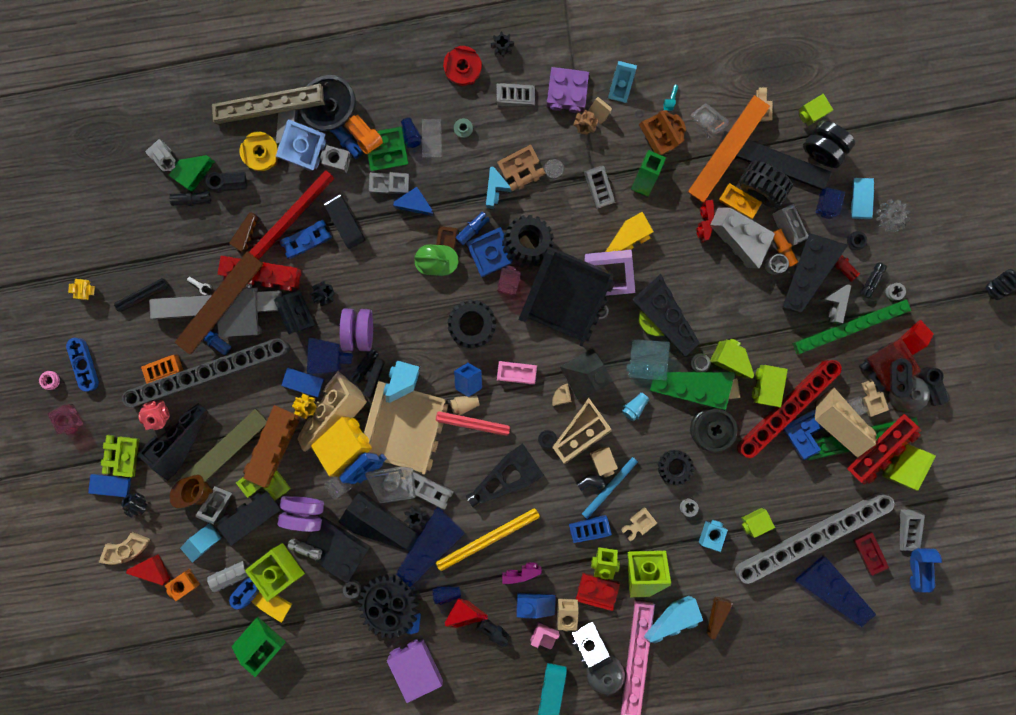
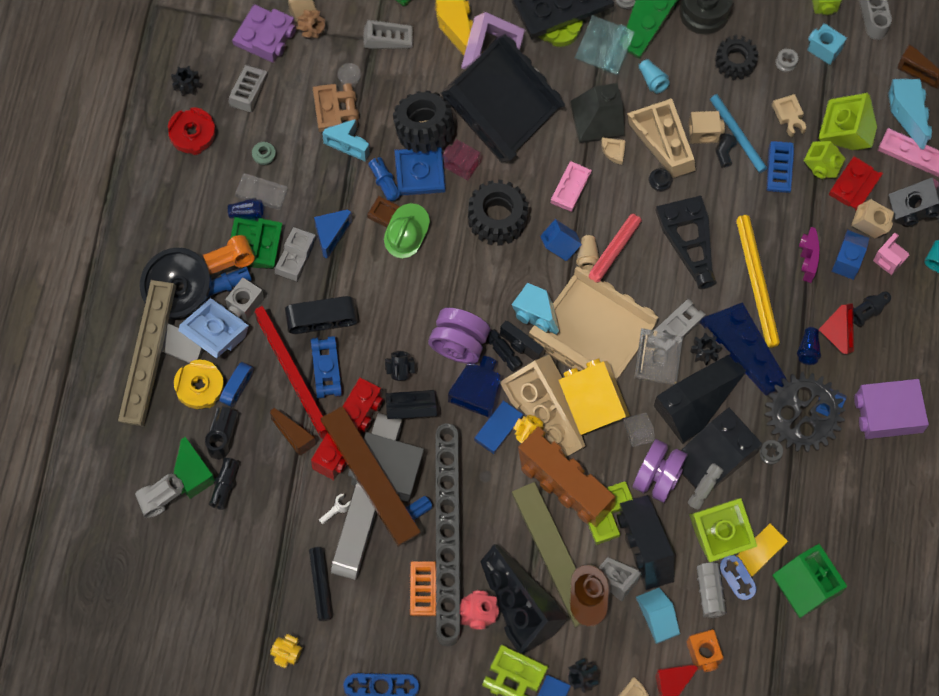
camera: 75 degrees left, 20 degrees down
(268, 179) = (236, 384): none -> blue beam
(365, 463) = (623, 373): blue plate -> none

